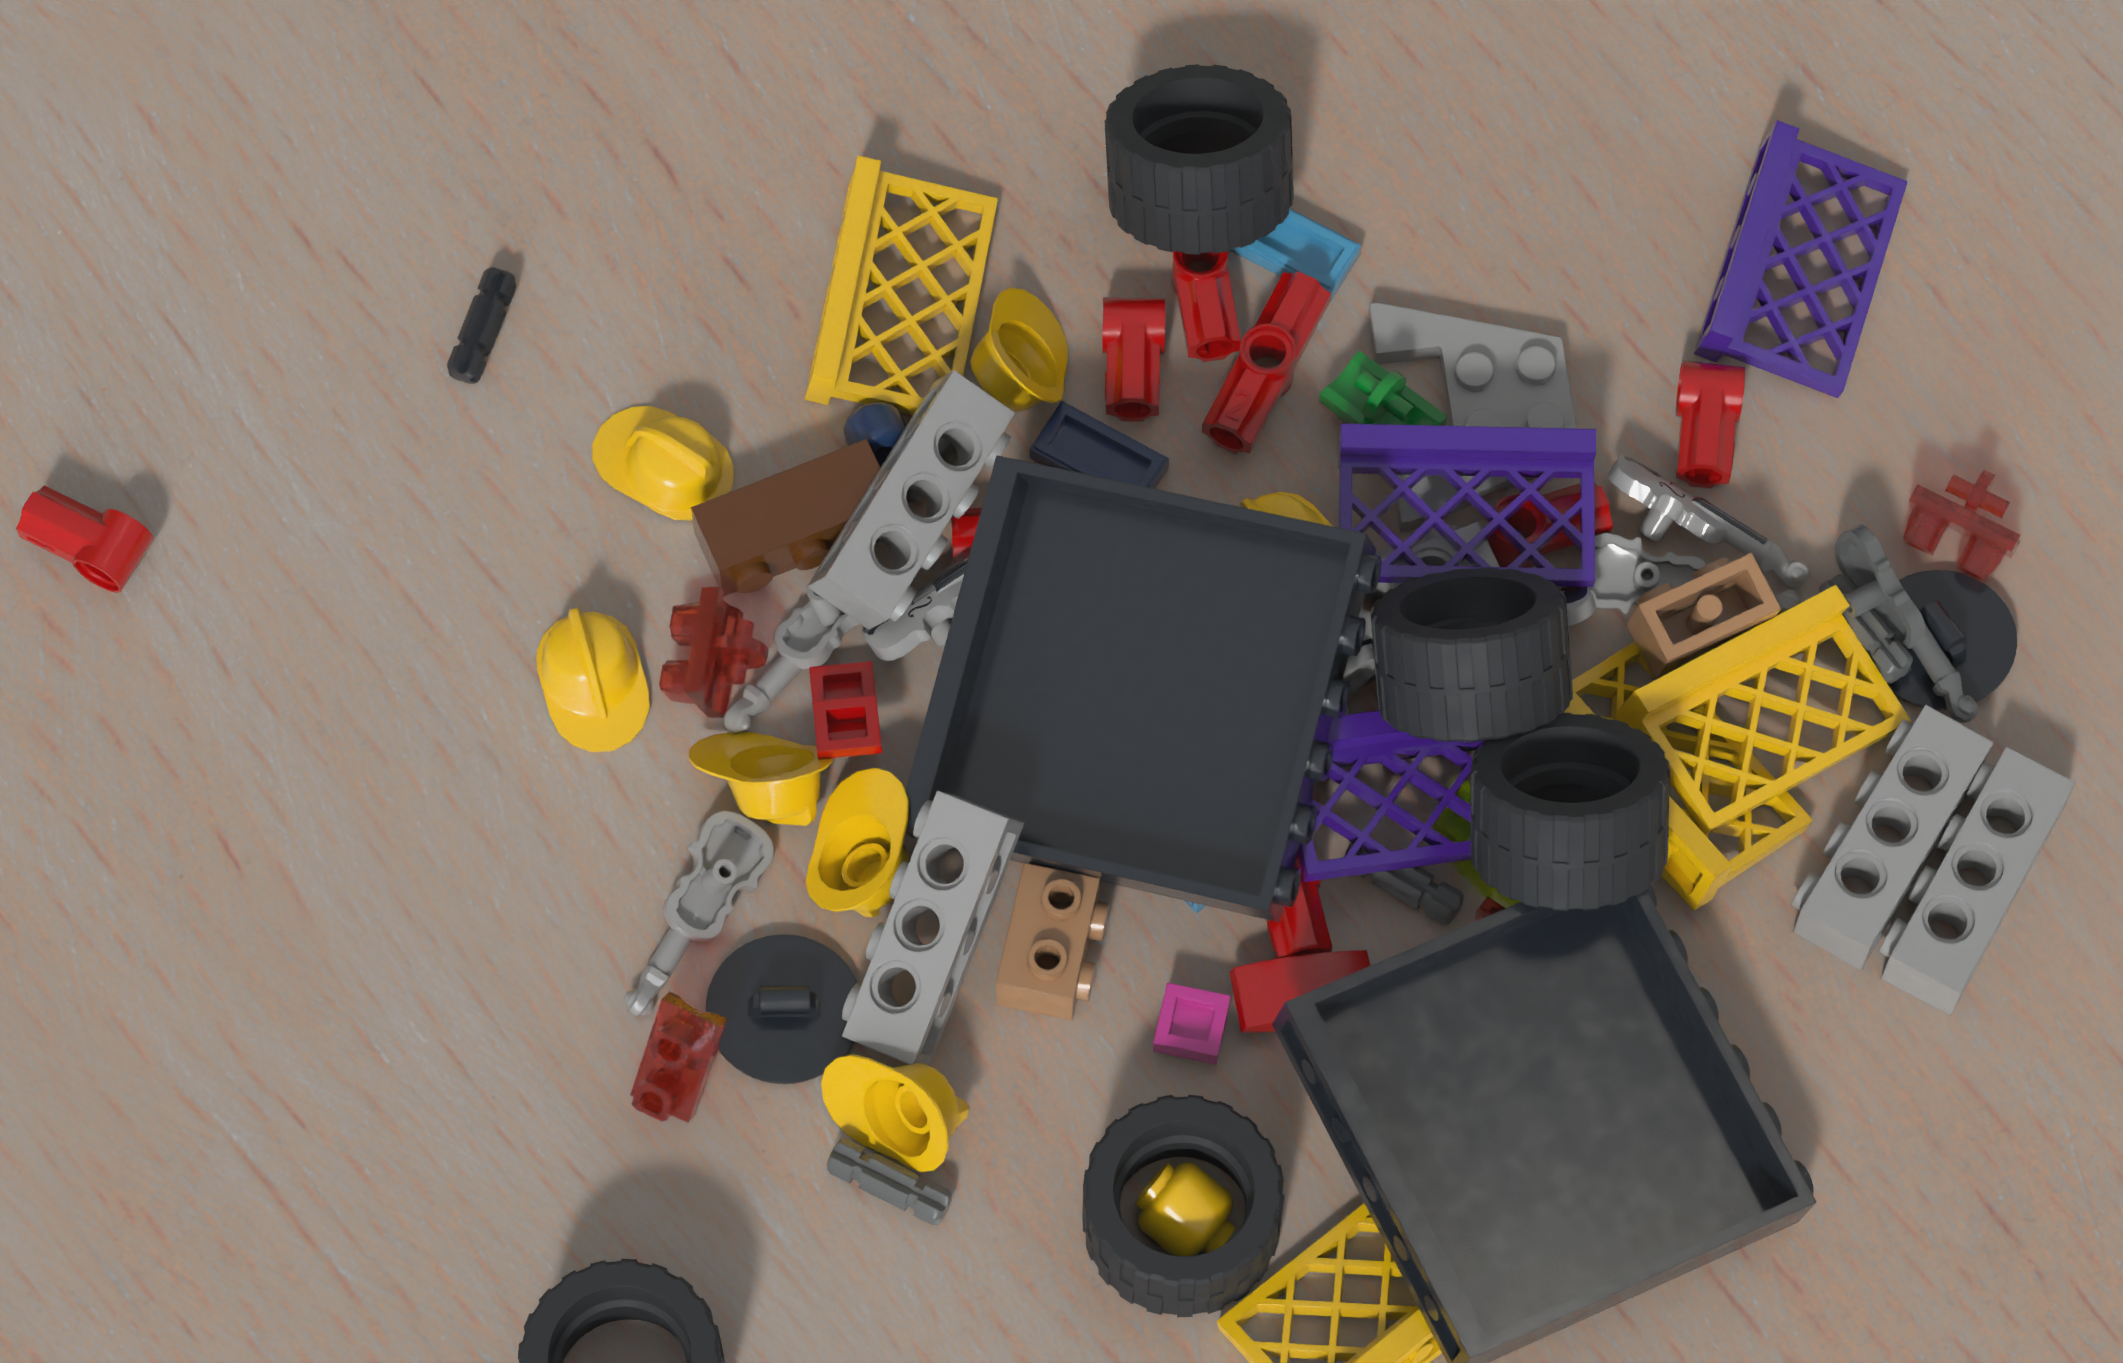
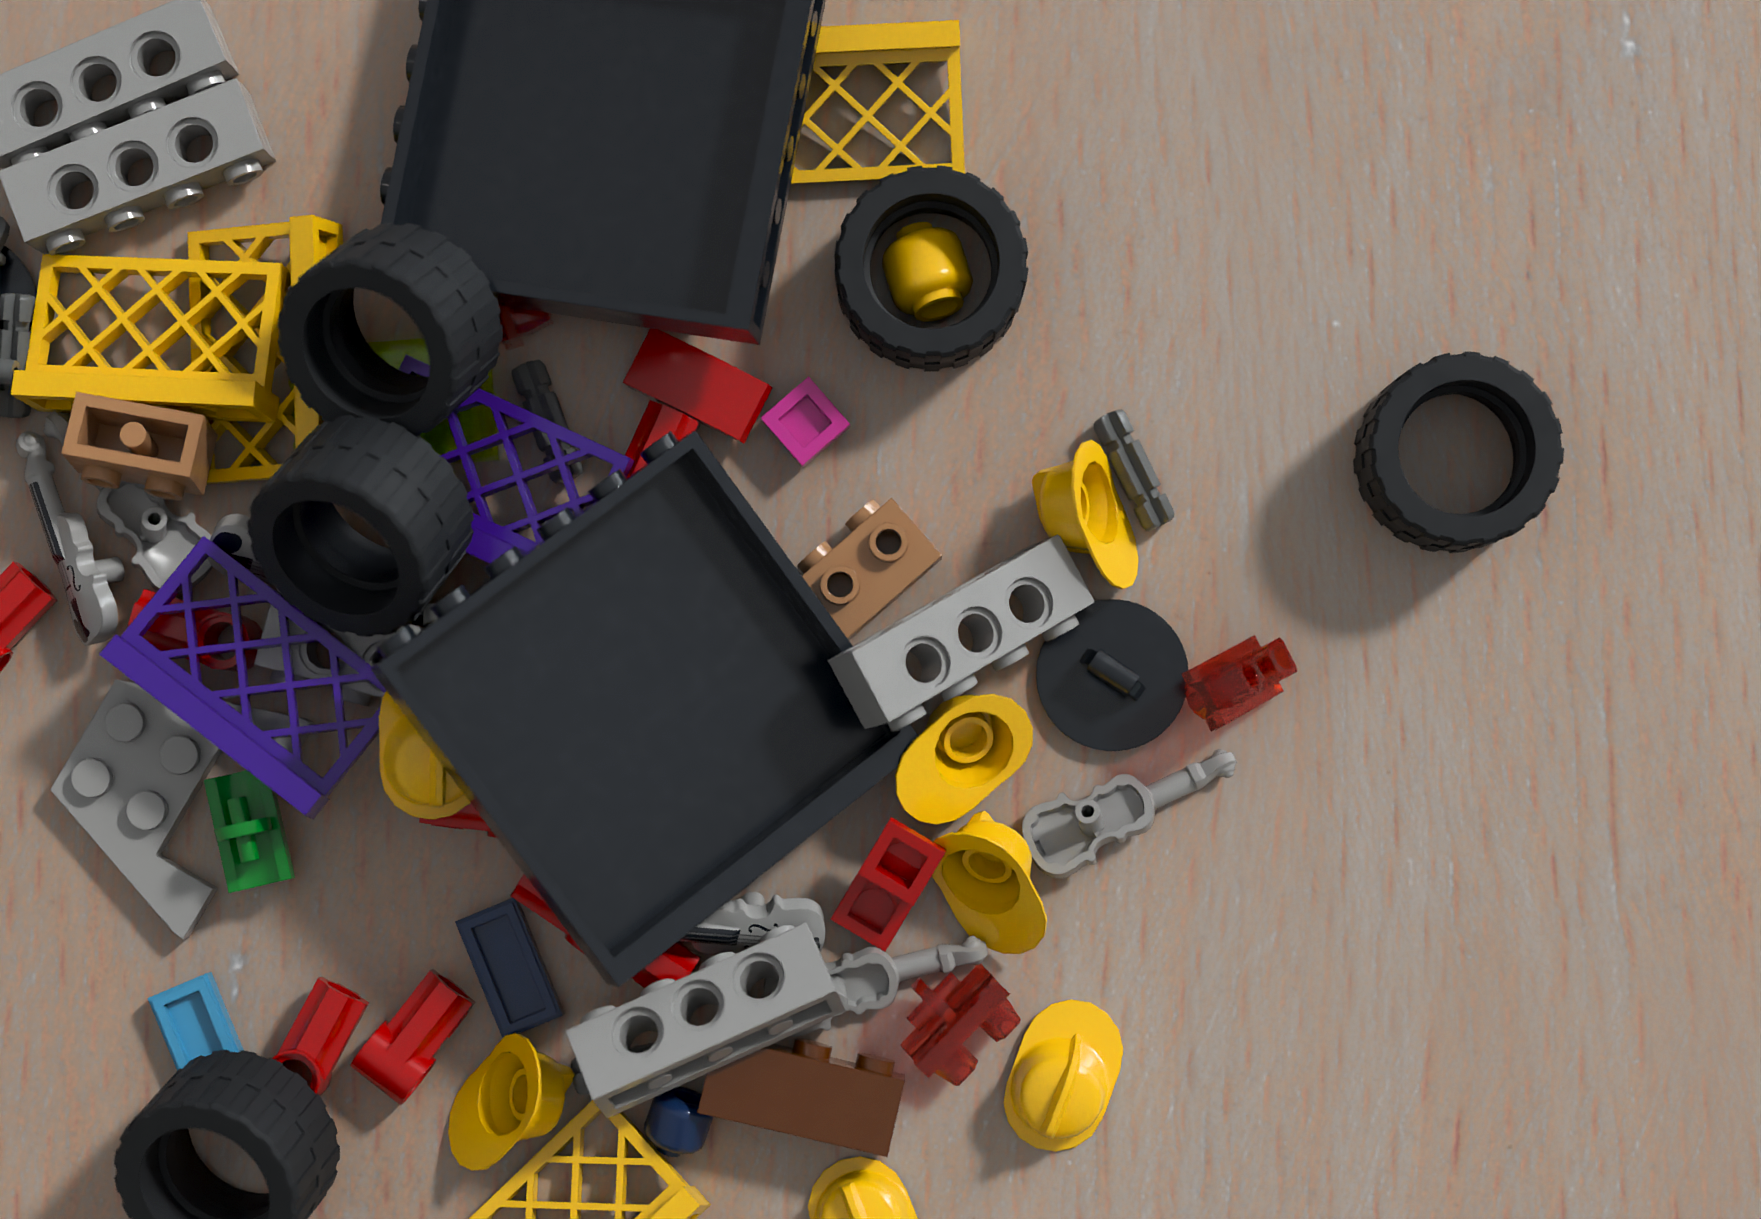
camera: 140 degrees left, 20 degrees up
(1253, 390) = (275, 963): red piece -> none

